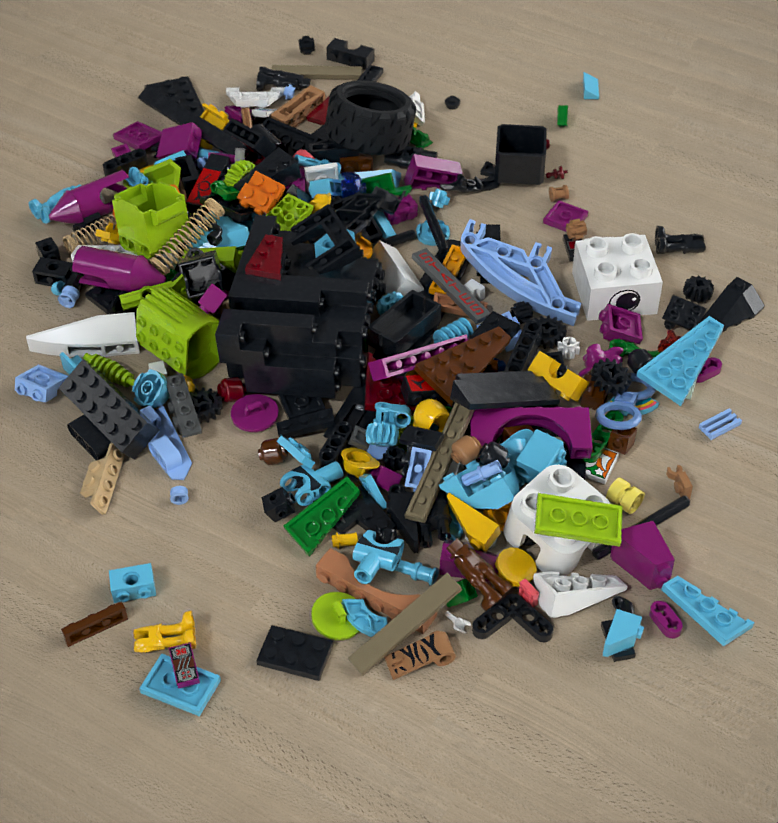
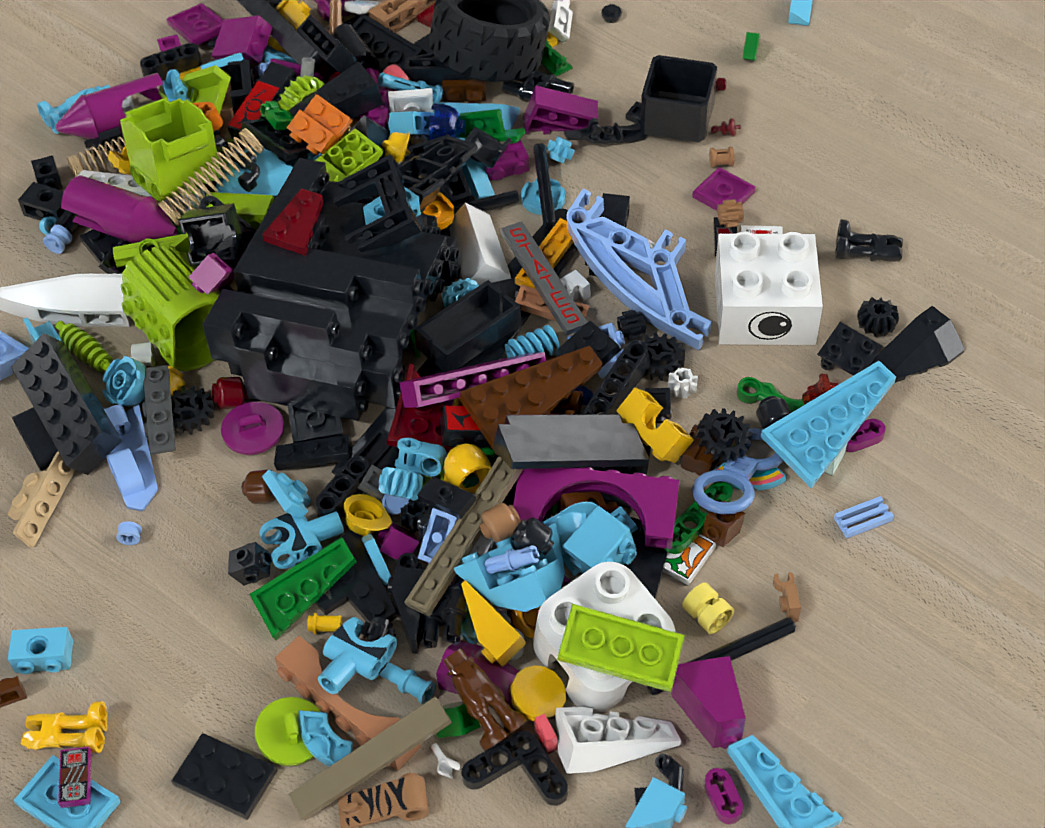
camera: 10 degrees right, 5 degrees up
(595, 353) = (715, 398): magenta animal -> none
(620, 324) = (760, 357): magenta plate -> none

